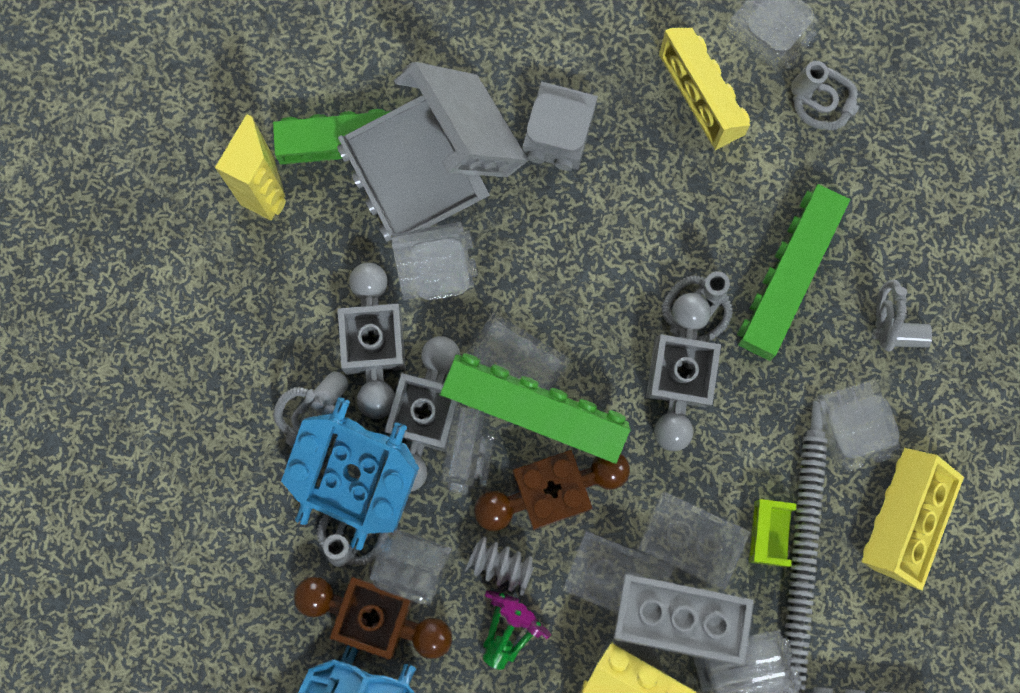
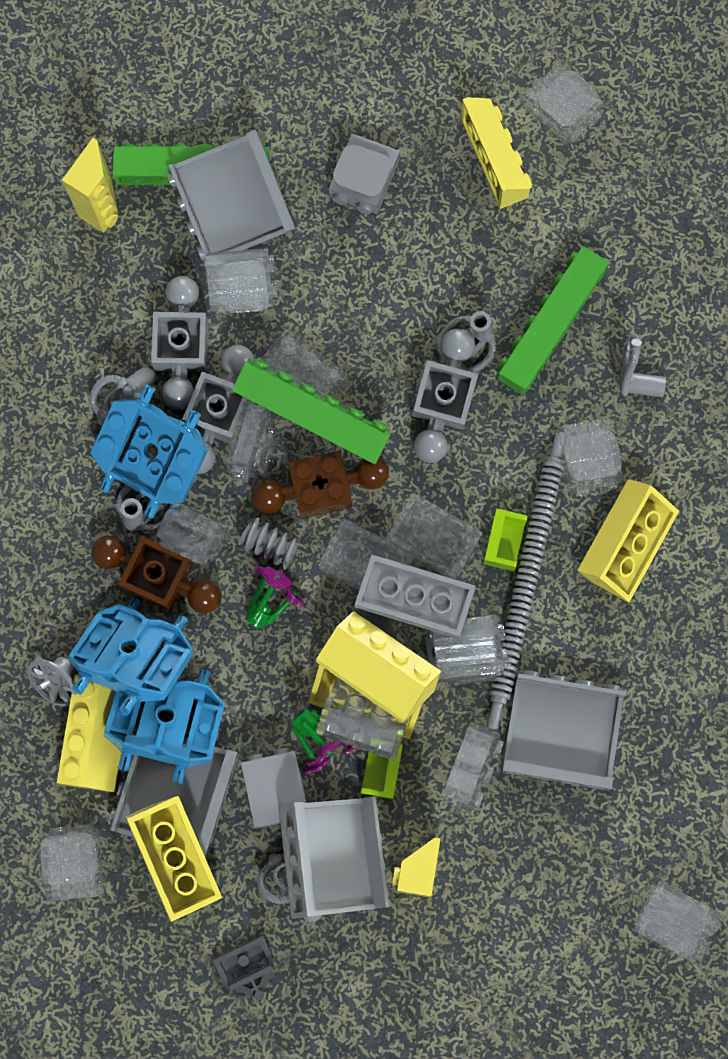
camera: 10 degrees right, 0 degrees up
(469, 120) = (283, 161): light grey panel -> none
(812, 78) = (583, 161): light grey piece -> none

